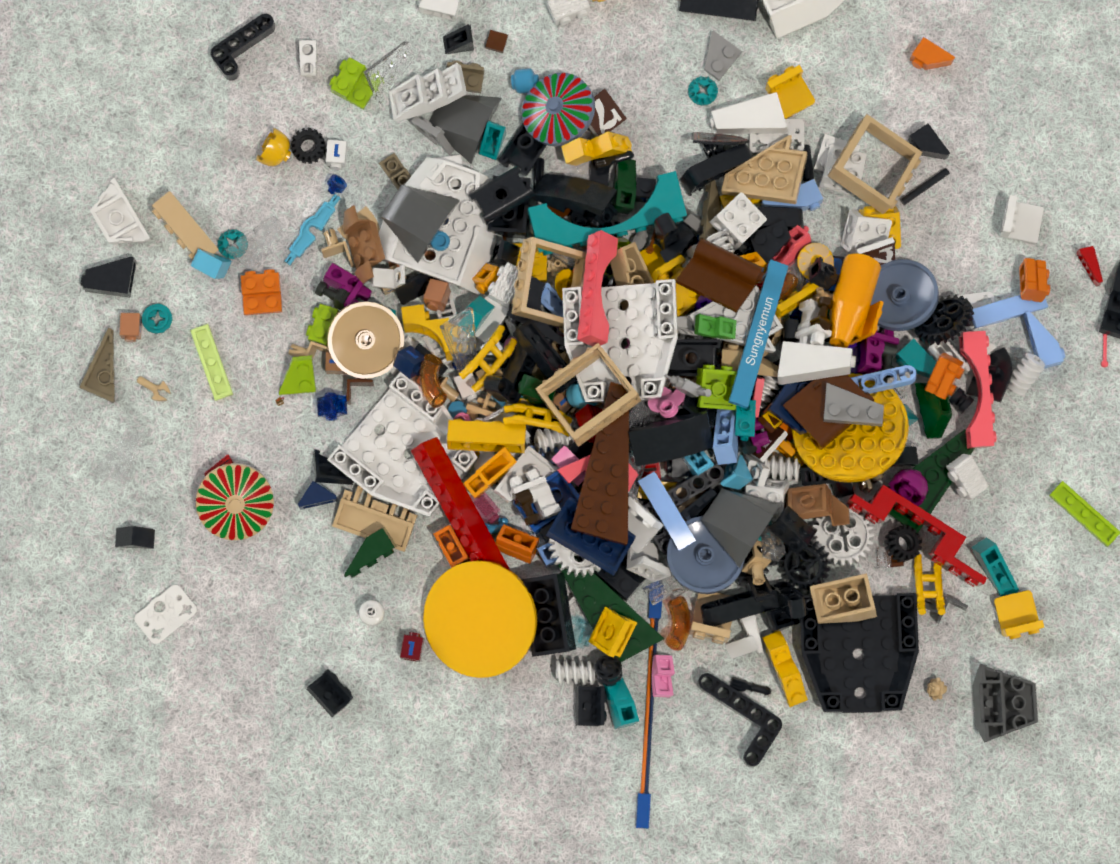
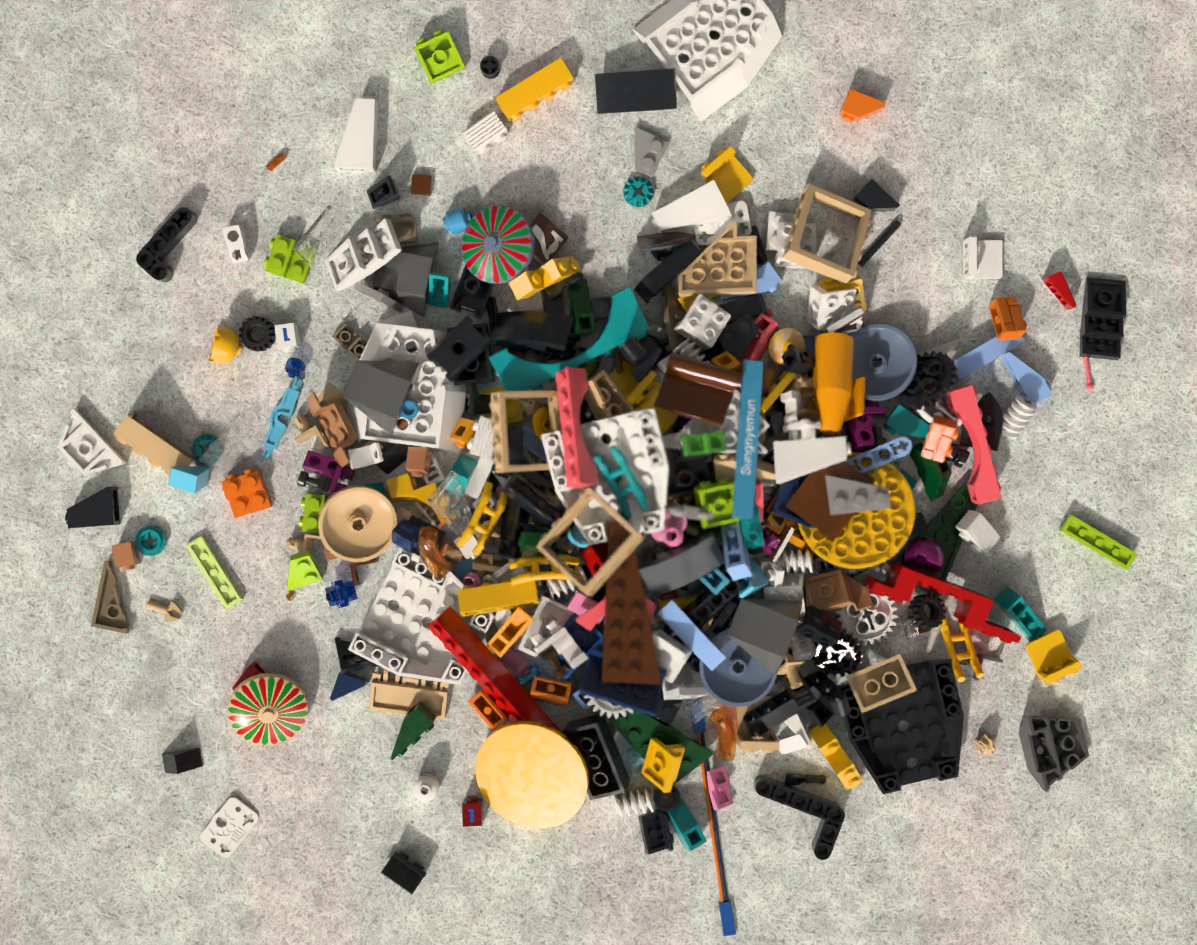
camera: 20 degrees left, 10 degrees up
(621, 338) = (623, 469): none -> teal piece

